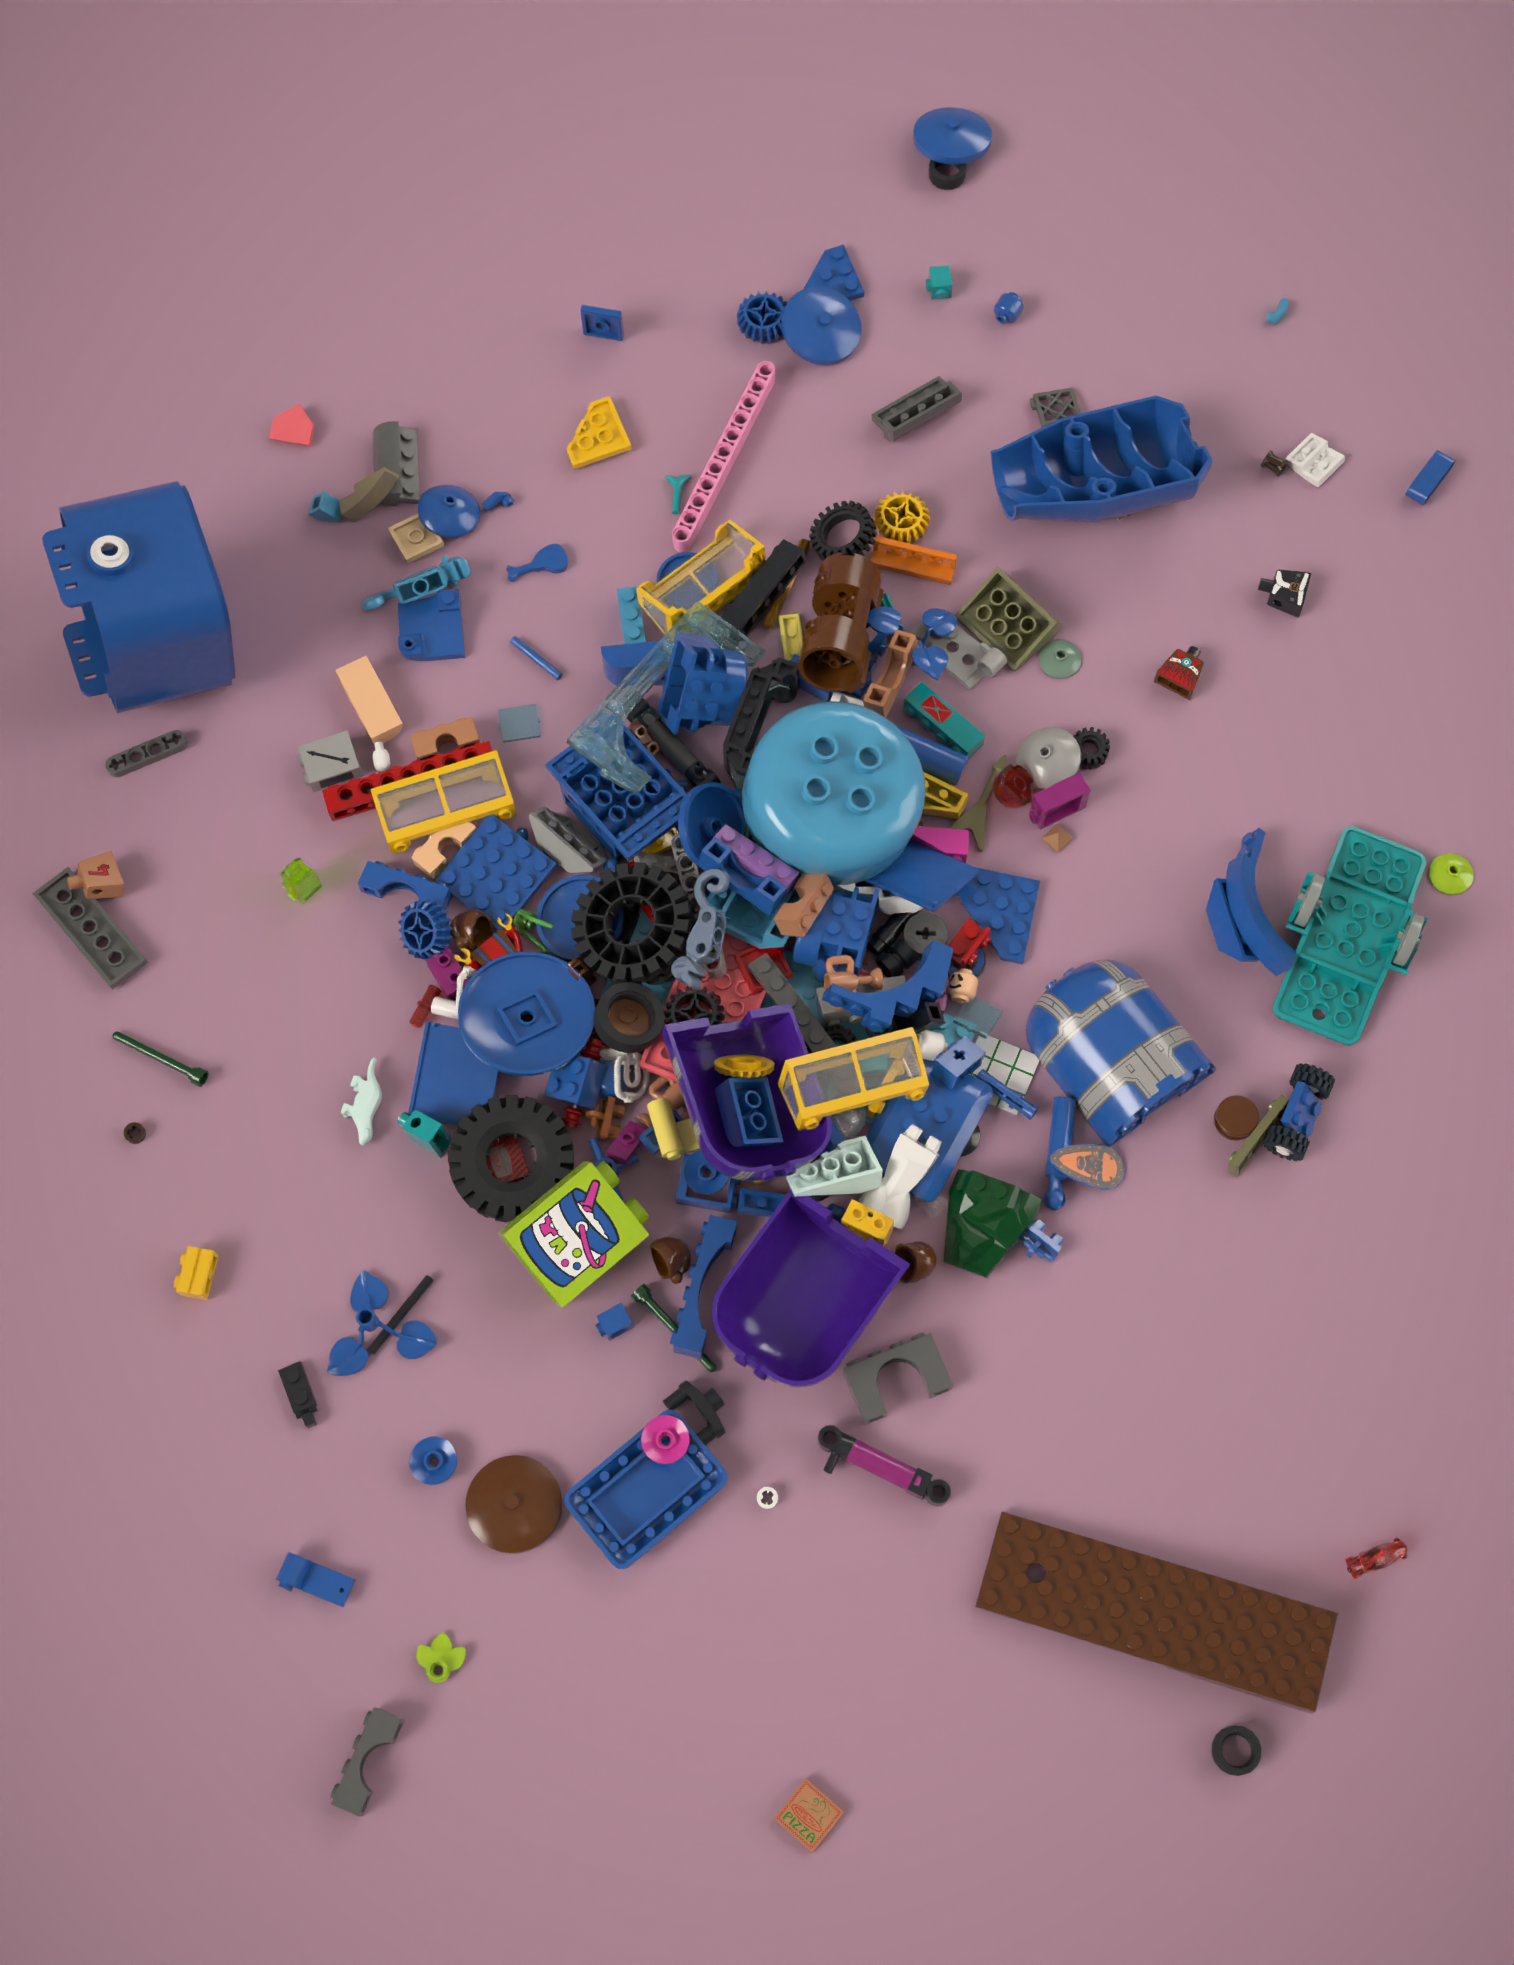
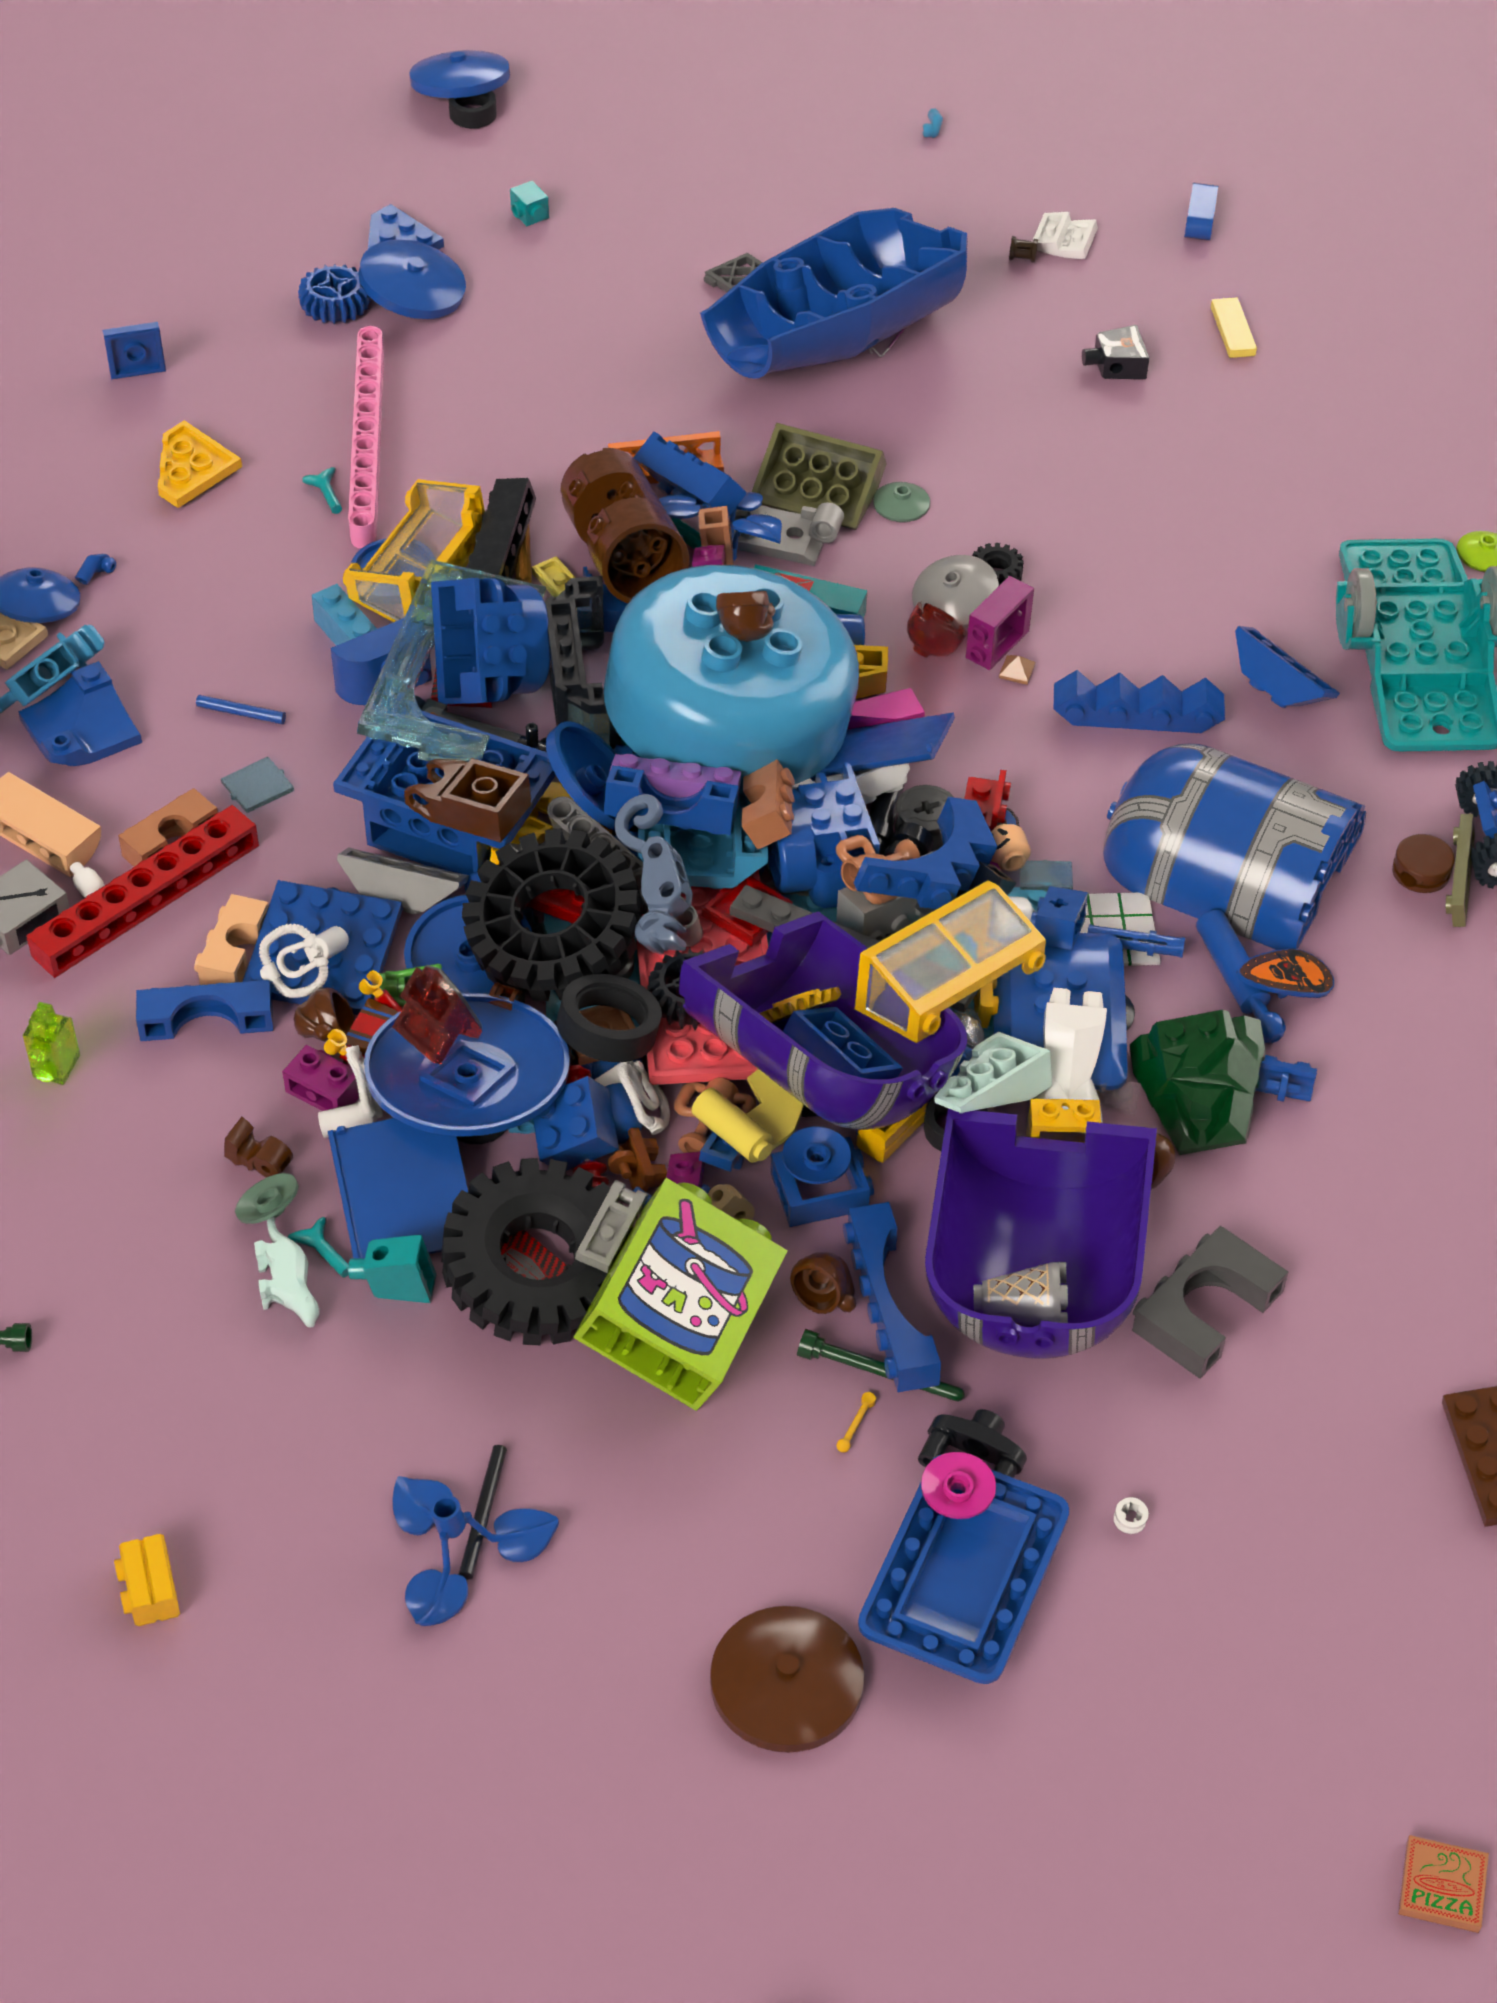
camera: 30 degrees left, 20 degrees down
(299, 1393) = (389, 1672): black hinge -> none
(314, 1579) = (550, 1907): blue door -> none
(377, 1045) = (267, 1198): none -> sand green dish
(387, 1008) = (266, 1156): none -> reddish brown leg
(394, 1083) = (315, 1238): none -> teal piece
(421, 916) = (277, 1054): blue gear -> none
(423, 1454) = (636, 1654): blue dish -> none
(424, 1006) = (308, 1131): clear red axle -> none
(440, 1654) = (798, 1923): lime plate -> none
(443, 799) = (202, 886): windscreen -> none
(480, 884) = (317, 949): none -> white piece
(519, 976) = (434, 1014): none -> clear red piece
(550, 558) = (197, 604): blue piece -> none
(555, 1168) = (610, 1227): none -> light grey plate
(614, 1322) = (794, 1390): blue brick -> none
(619, 820) = (472, 797): none -> reddish brown brick
(643, 1176) = (731, 1202): none -> tan piece
(658, 1345) = (867, 1400): none -> yellow hinge
(758, 1202) = (904, 1174): blue hinge -> none
(779, 1331) = (1026, 1295): none -> light grey cone
(833, 517) = (549, 441): black tyre -> none
(842, 770) = (746, 614): none -> reddish brown piece
(880, 675) = (709, 555): none -> magenta plate
(909, 526) = (623, 421): yellow gear -> none
(912, 592) = (687, 475): none -> blue wedge
(913, 1480) = (1314, 1408): piece -> none
(916, 408) = (577, 320): dark grey brick -> none
(975, 817) = (904, 674): olive piece -> none
(1005, 906) = (999, 745): blue plate -> none
(1008, 307) = (626, 202): blue head -> none
(1125, 910) = (1151, 707): none -> blue brick
(1181, 672) = (1053, 464): torso -> none
(1247, 910) = (1300, 646): blue arch -> none
(1389, 596) = (1233, 327): none -> light yellow tile

